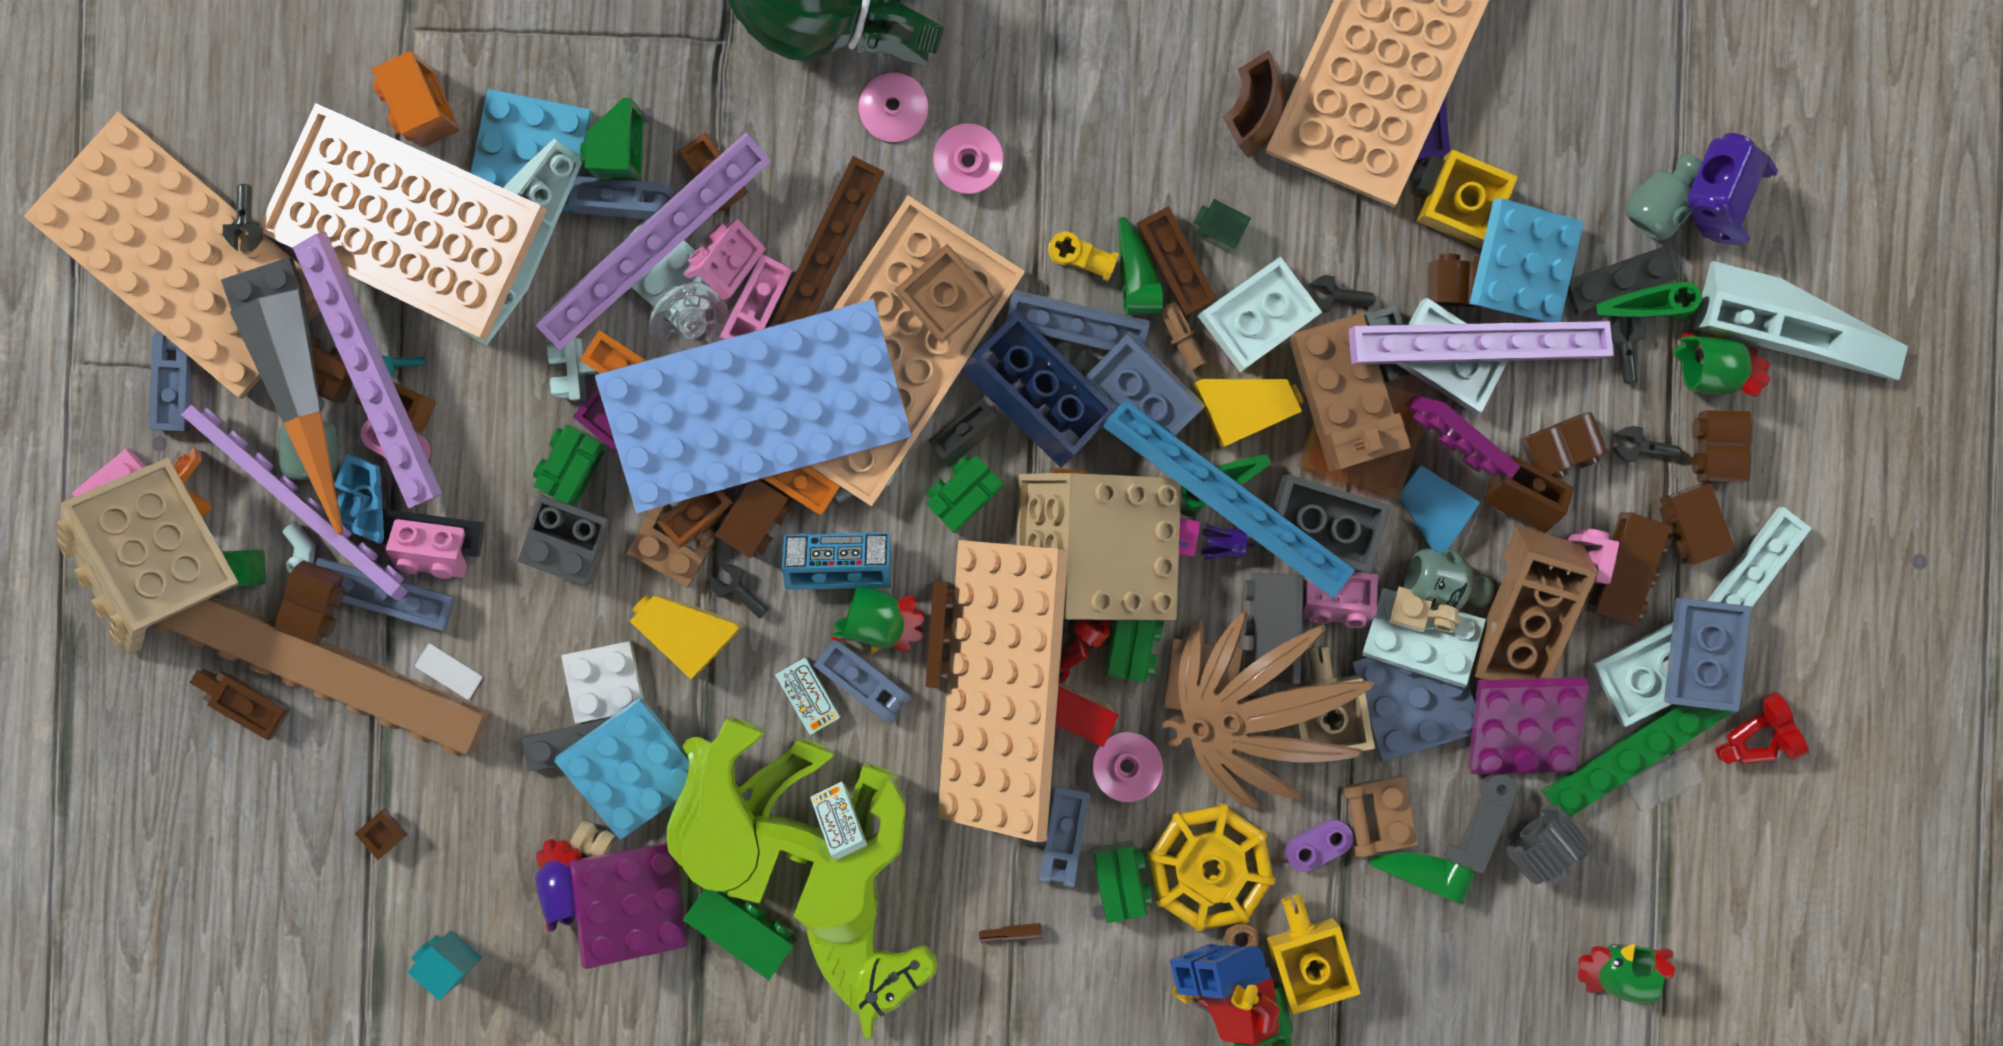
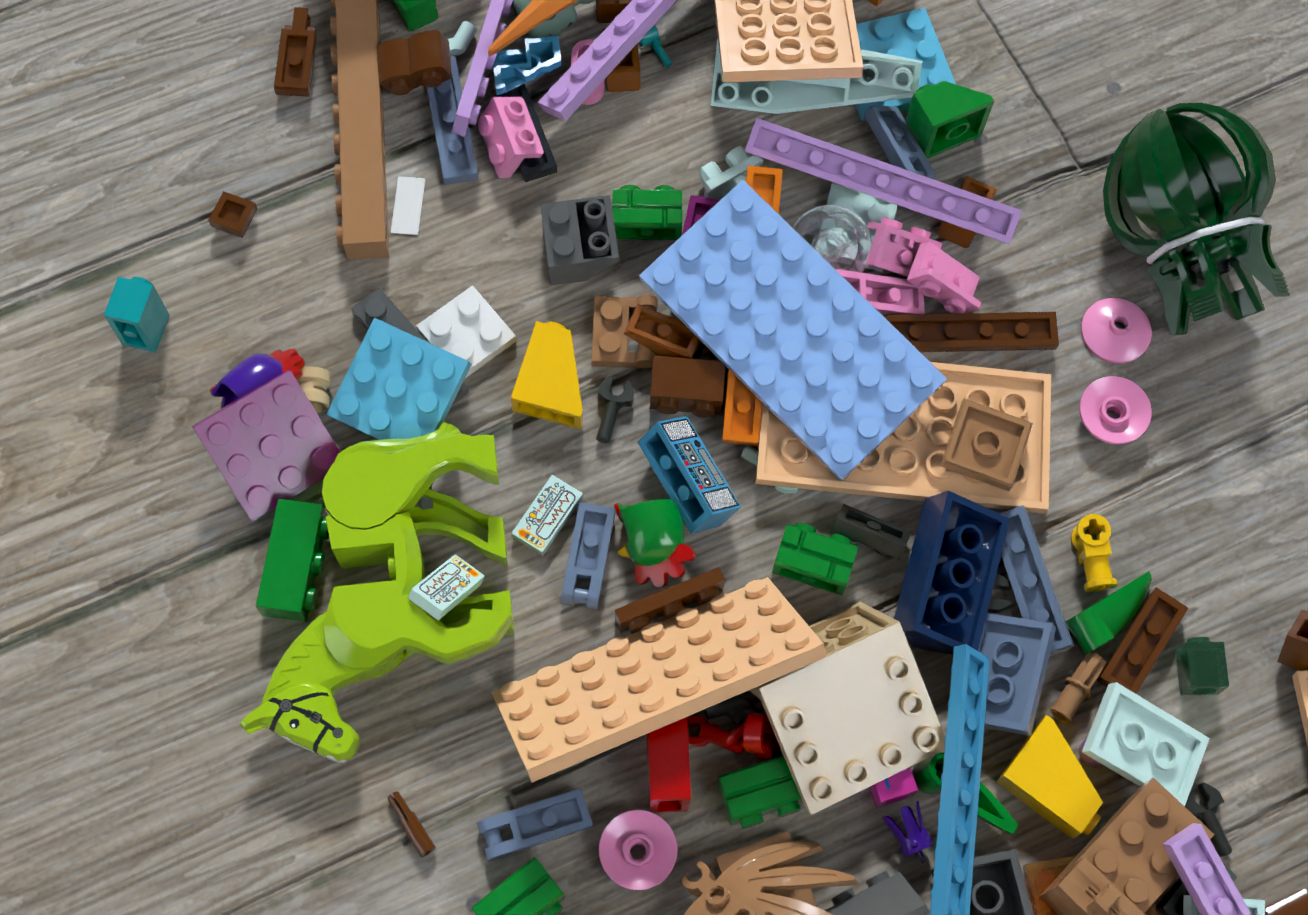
camera: 60 degrees right, 20 degrees down
(772, 236) = (944, 279): none -> bright pink bracket

